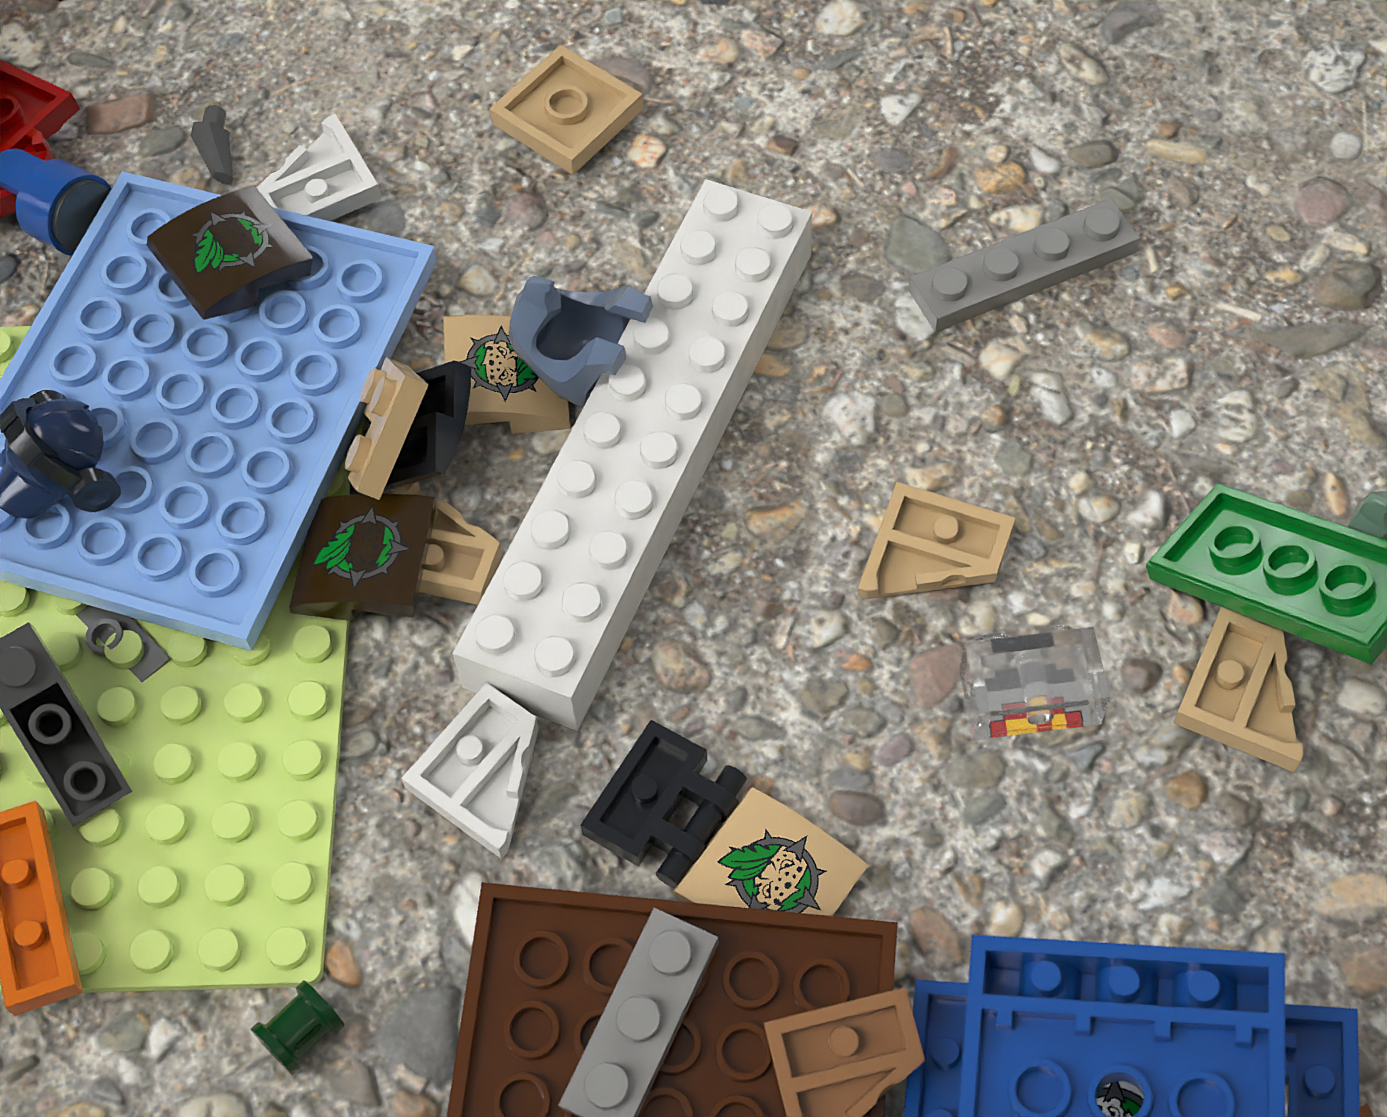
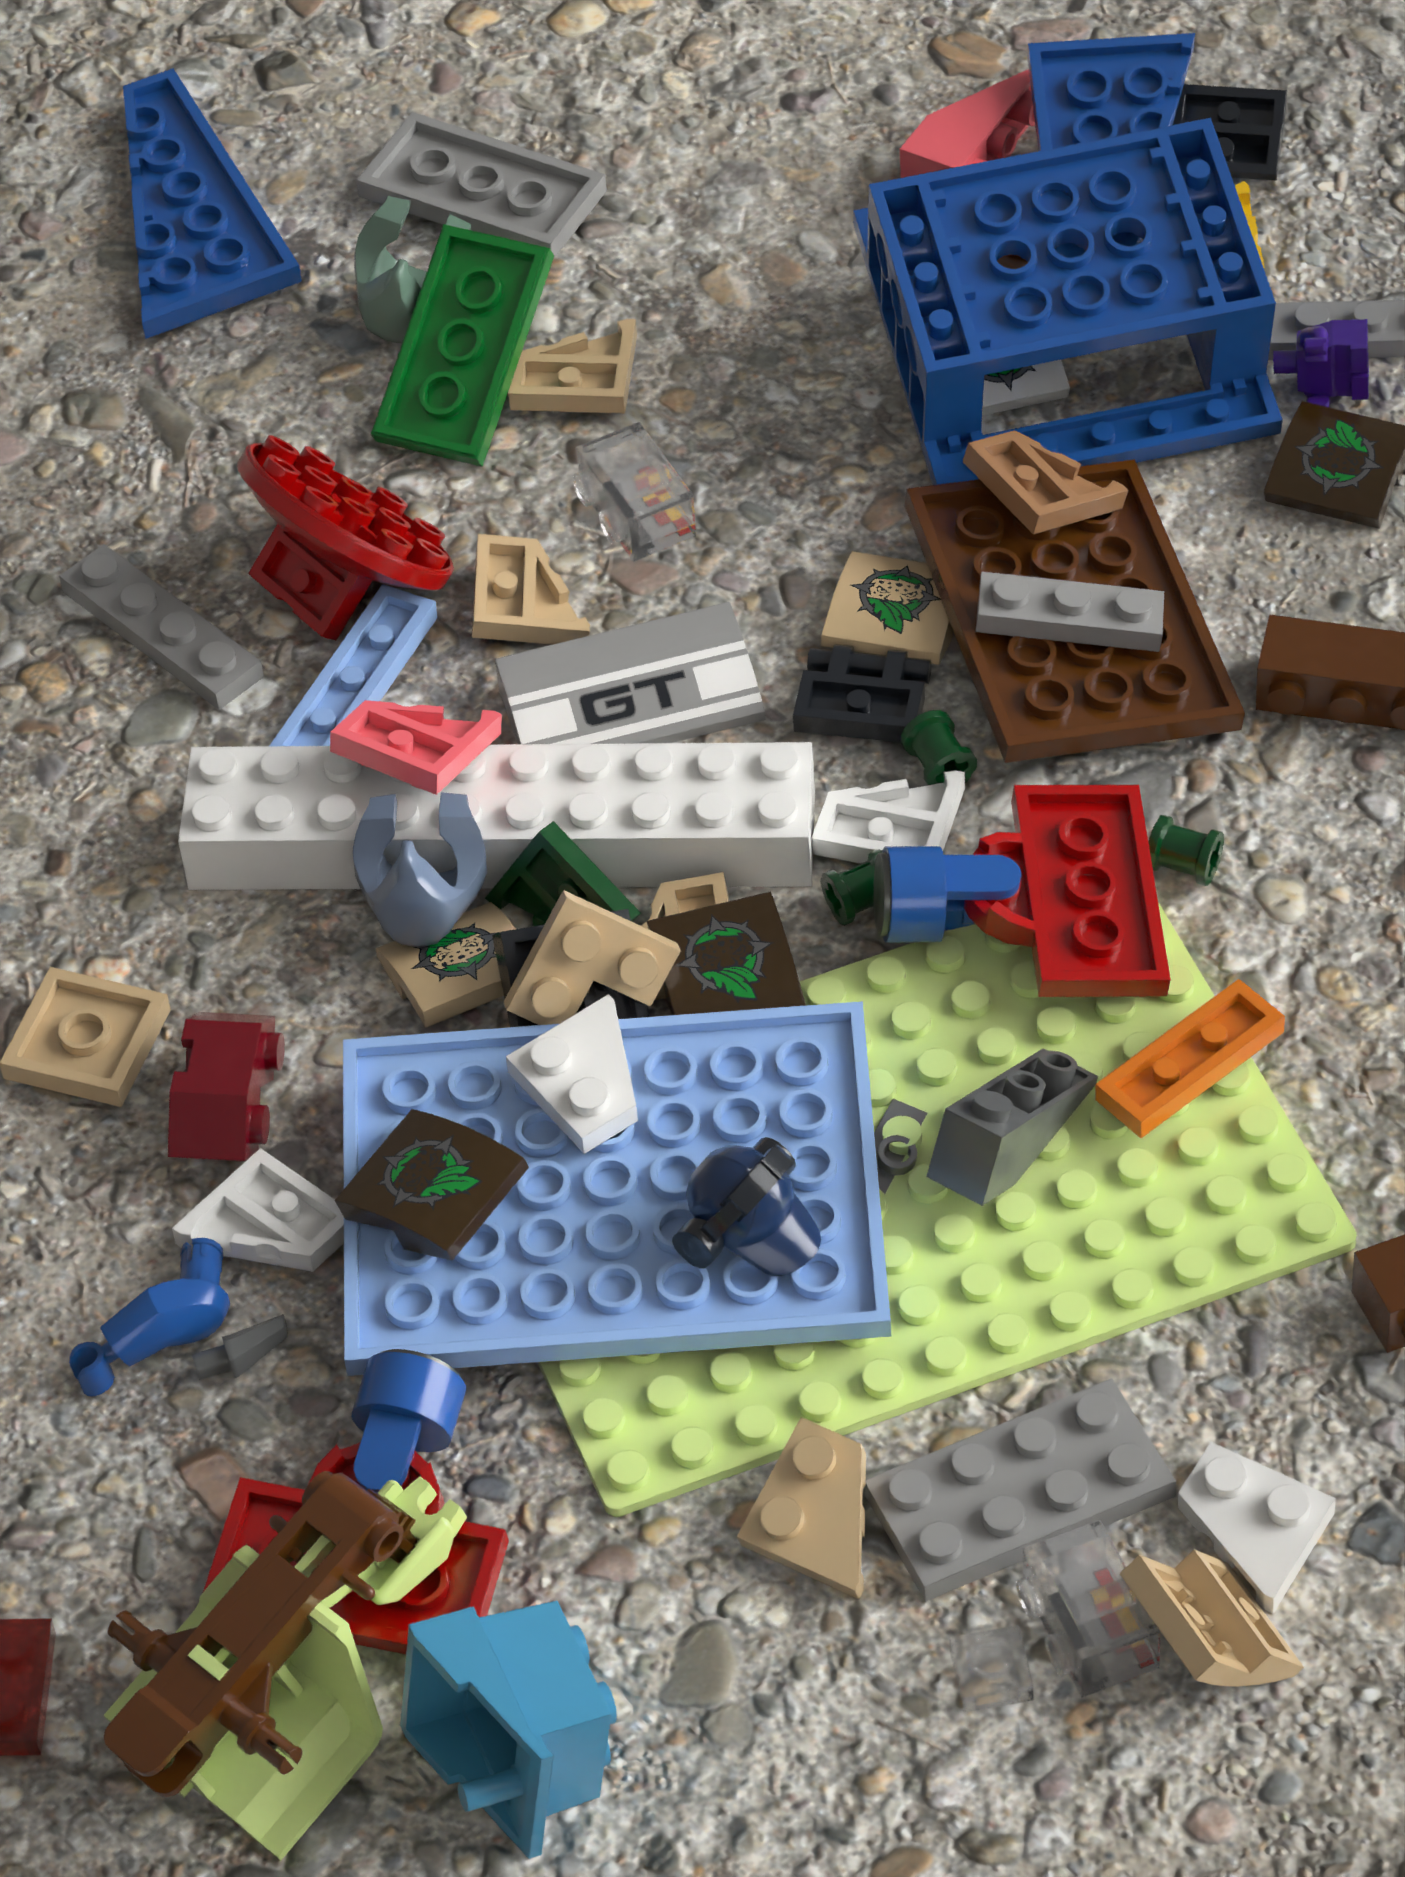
camera: 110 degrees left, 10 degrees down
(255, 106) = (158, 1318): none -> blue arm
(282, 390) = (580, 1075): none -> white wing
(284, 863) = (1064, 883): none -> red plate
(411, 709) = (850, 890): none -> dark green bush
(466, 171) = (218, 1095): none -> dark red brick
(511, 460) = (548, 868): none -> dark green wing
(546, 843) = (933, 742): none -> dark green bush
(702, 348) = (413, 741): none -> coral wing
(765, 605) = (634, 683): none -> light grey slope
(878, 382) = (361, 665): none -> light blue plate
(1049, 386) = (334, 536): none -> red bracket

